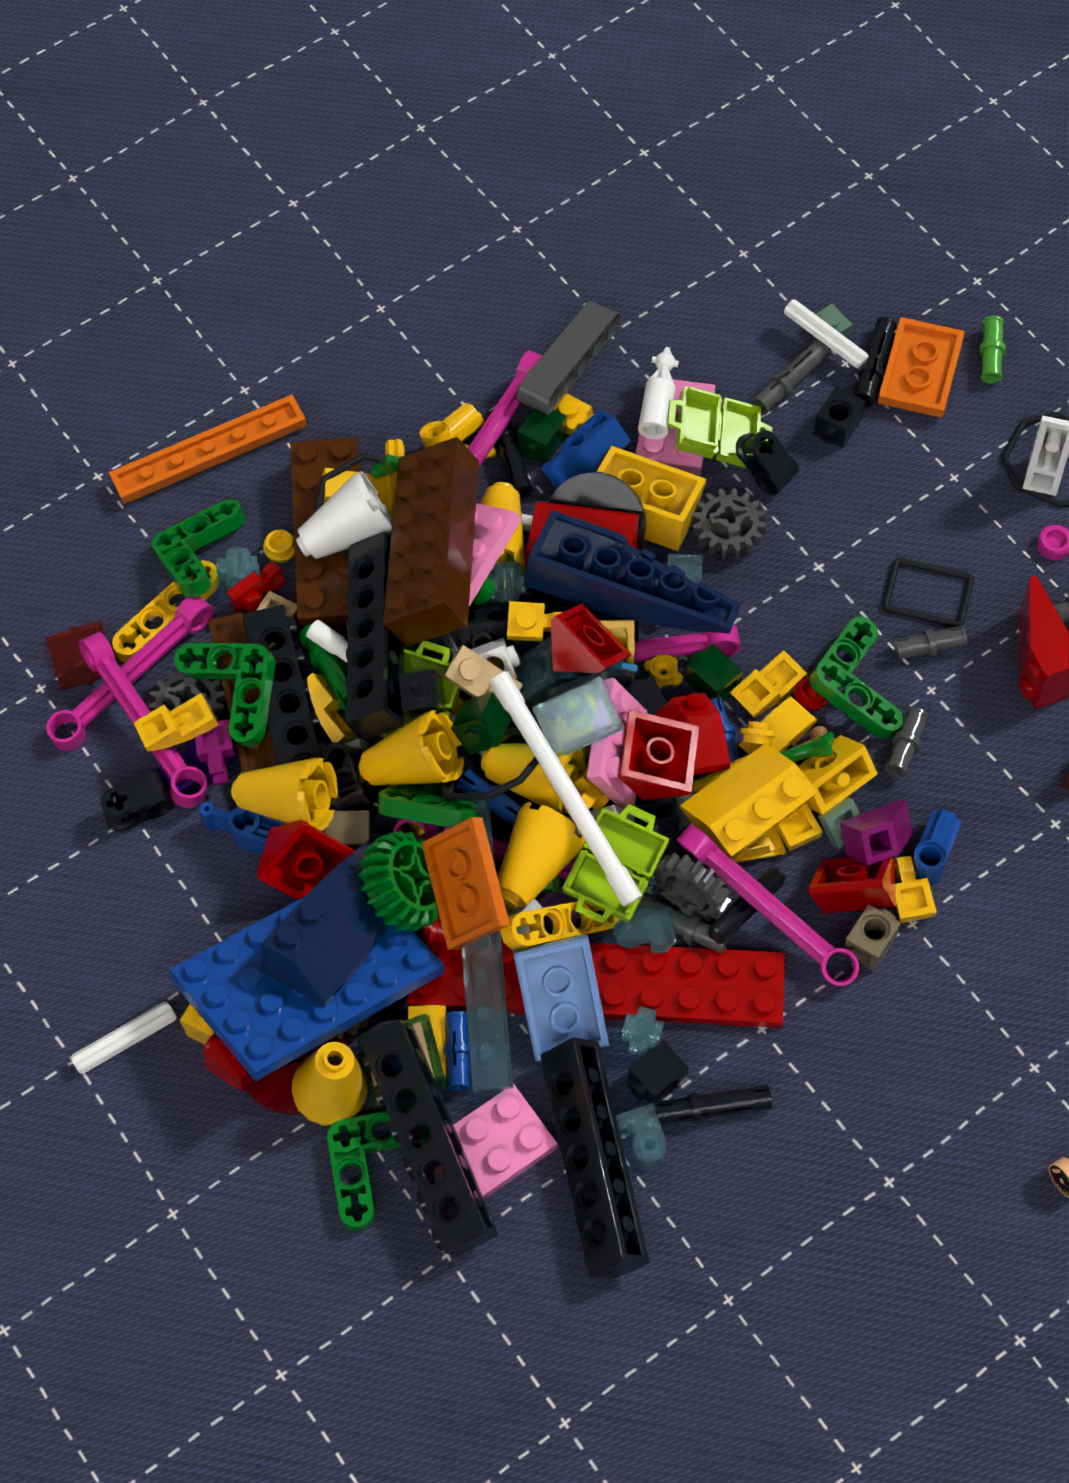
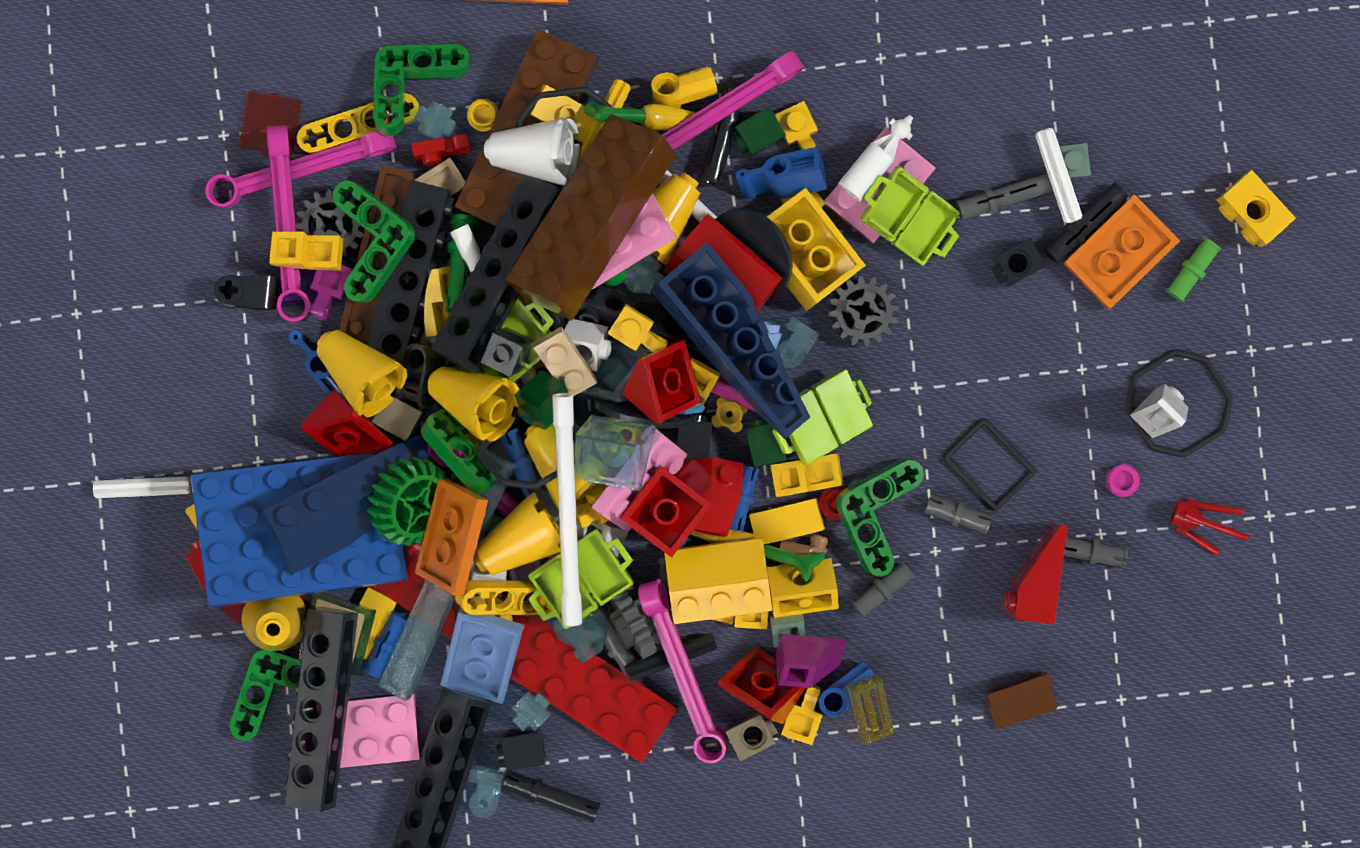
camera: 25 degrees right, 25 degrees up
(568, 357) = (823, 75): dark grey beam -> none
(757, 733) = (764, 522): yellow plate -> none
(760, 622) = (834, 417): none -> lime piece
(769, 462) = (928, 272): black piece -> none
(966, 850) = (864, 689): none -> clear yellow tile
(1010, 278) = (1273, 214): none -> yellow brick

